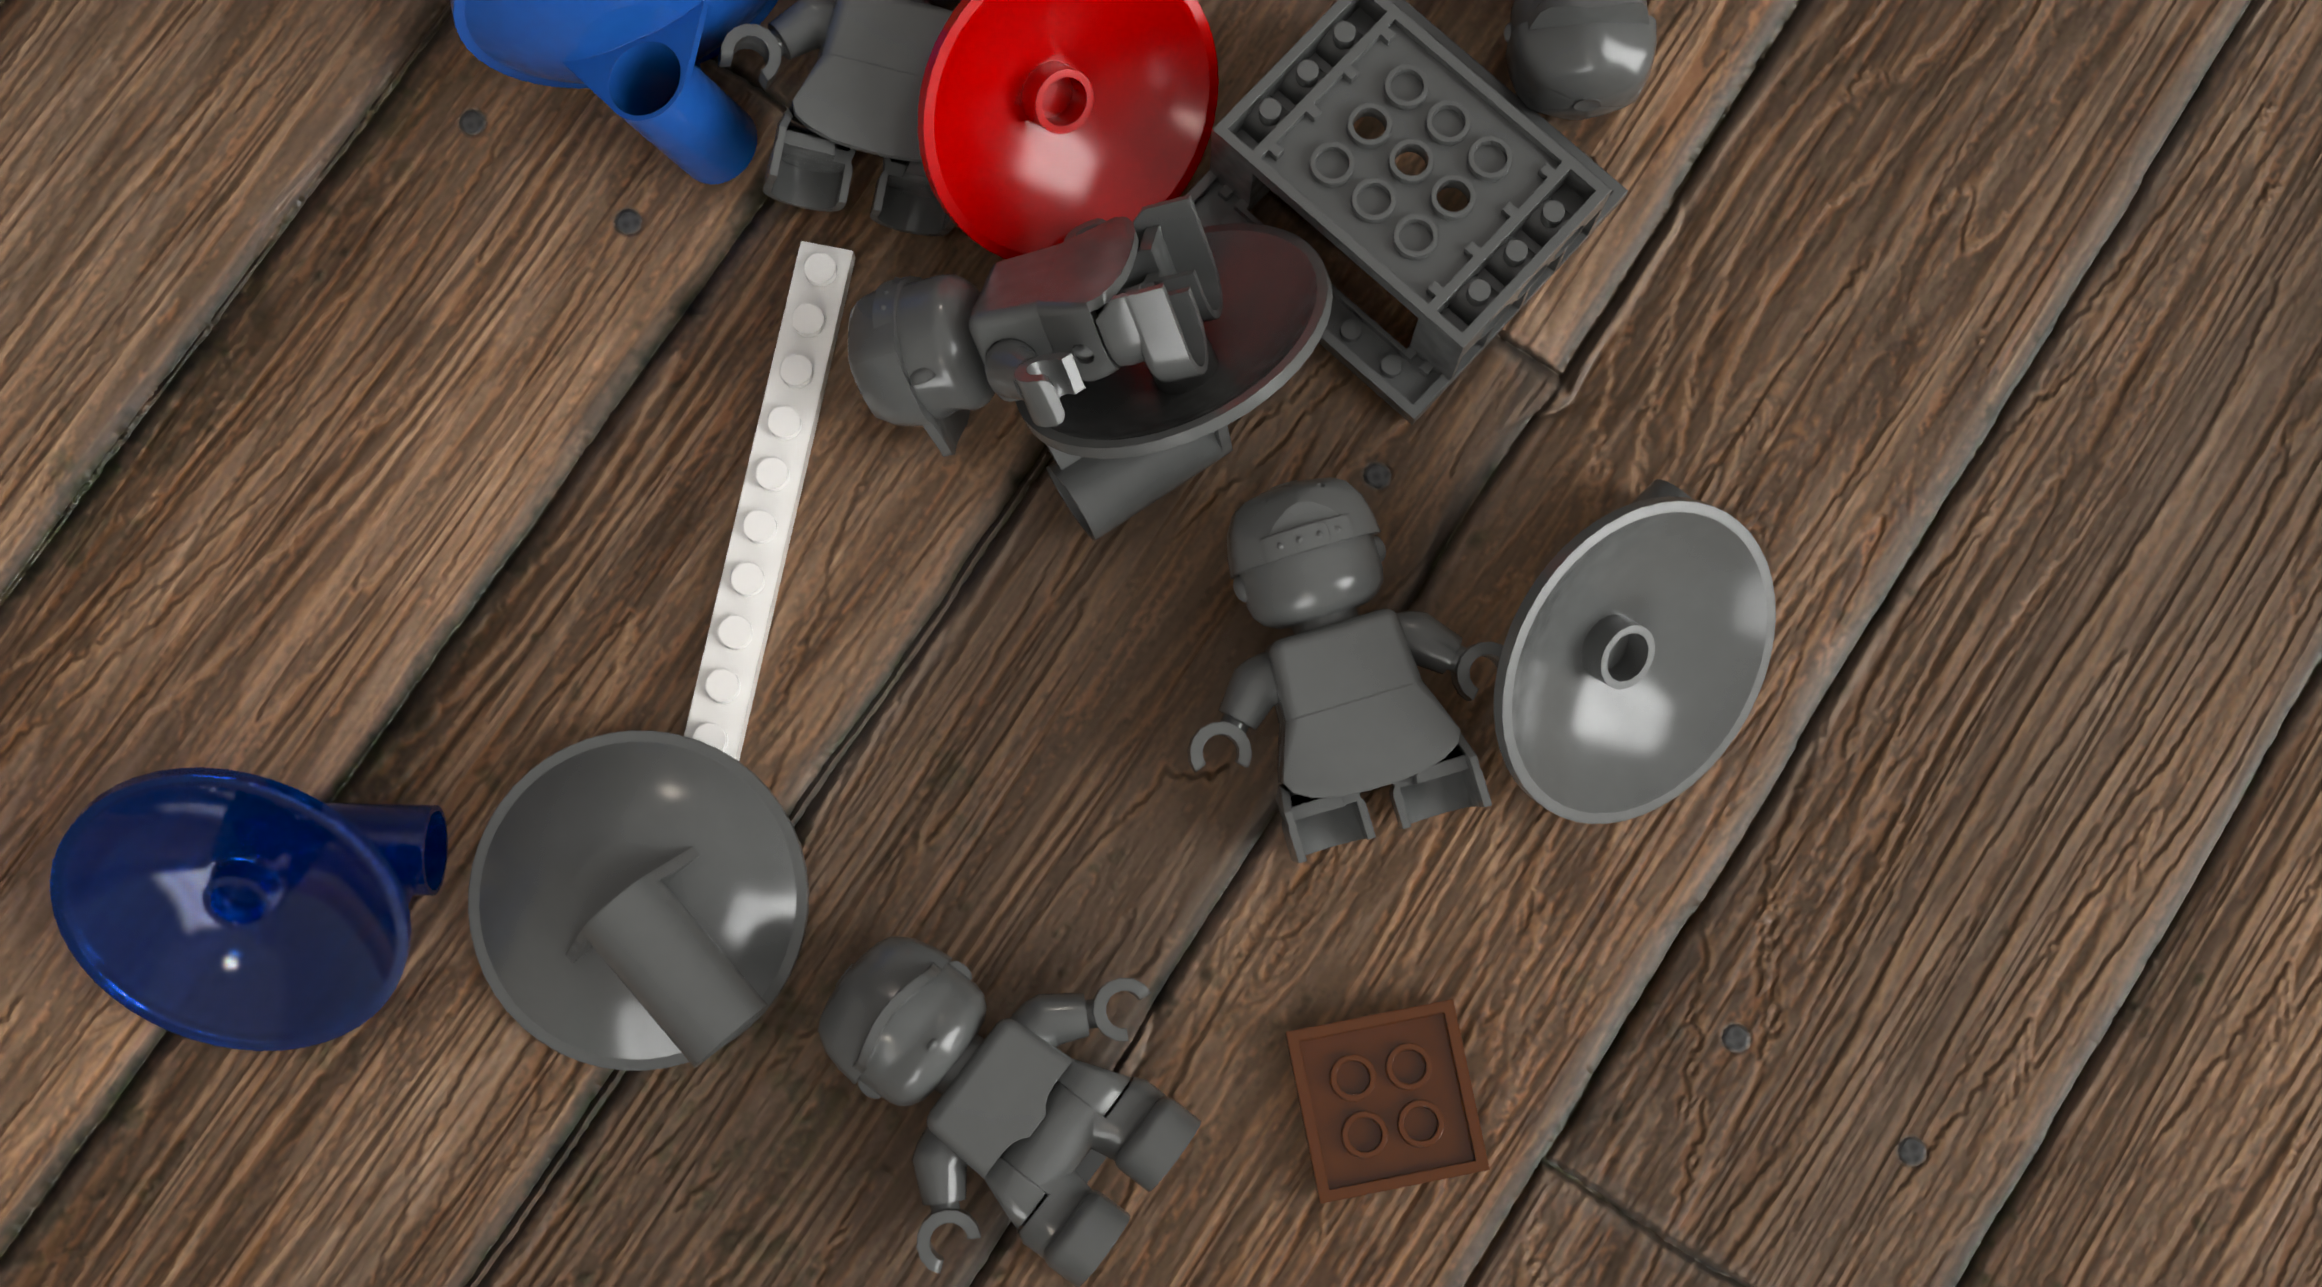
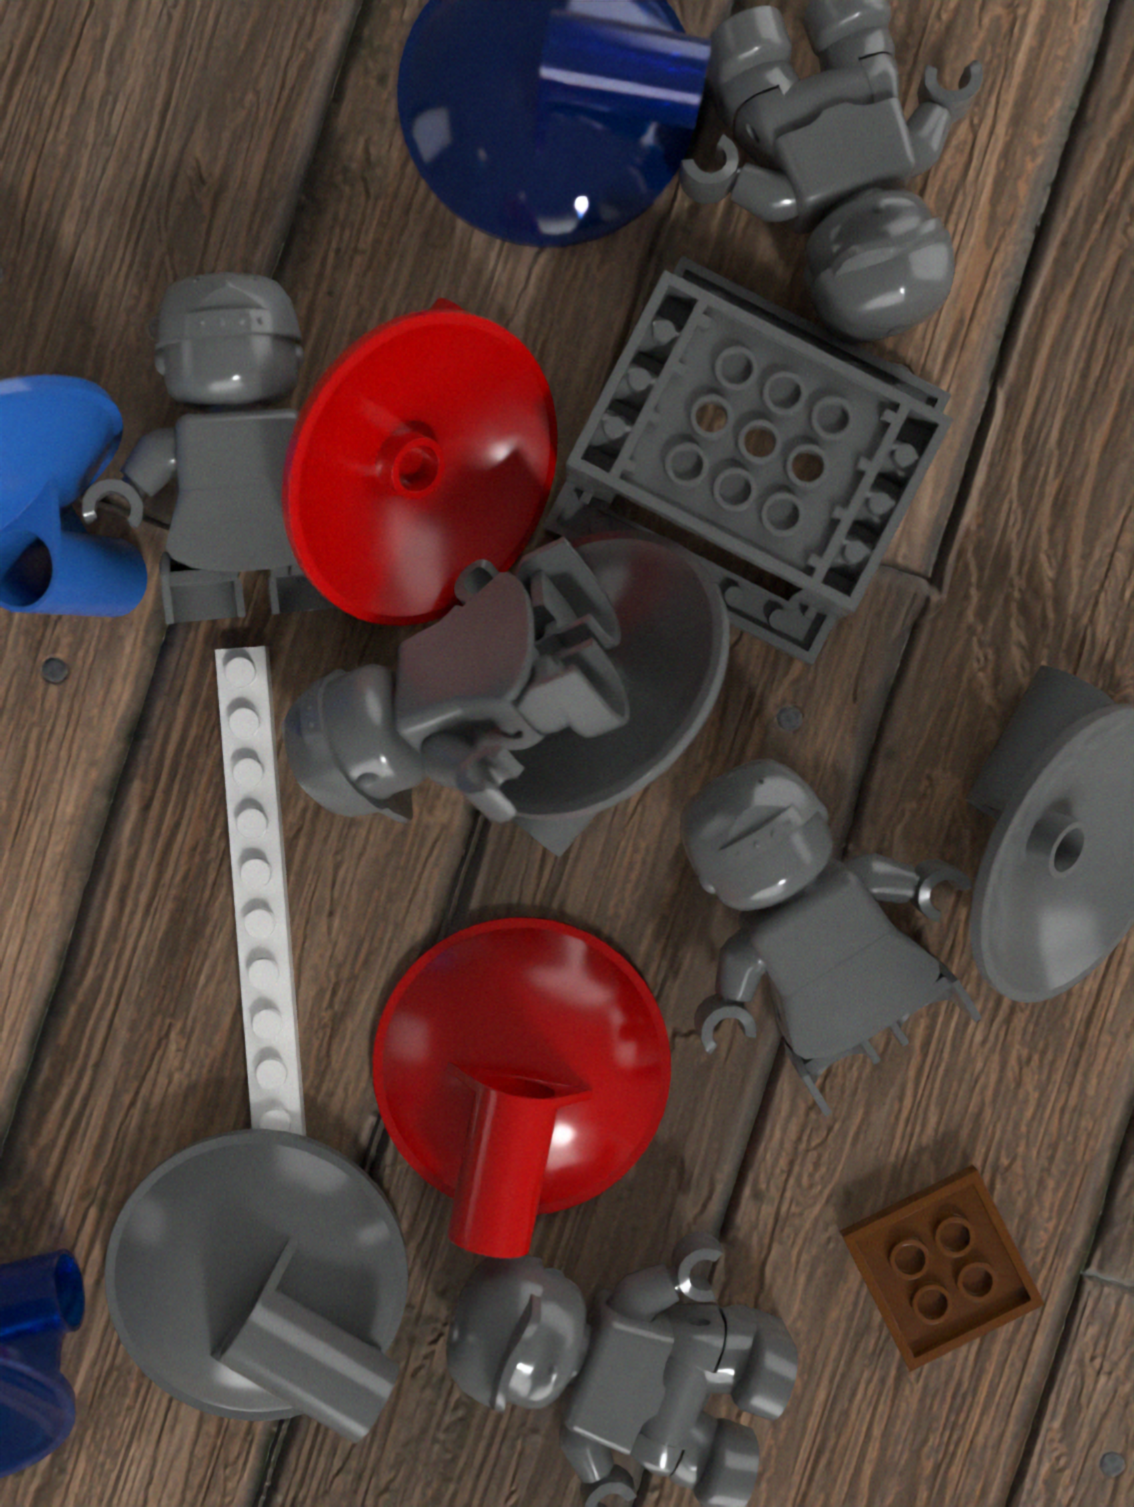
camera: 15 degrees left, 10 degrees up
(990, 759) = (520, 1074): none -> red dish

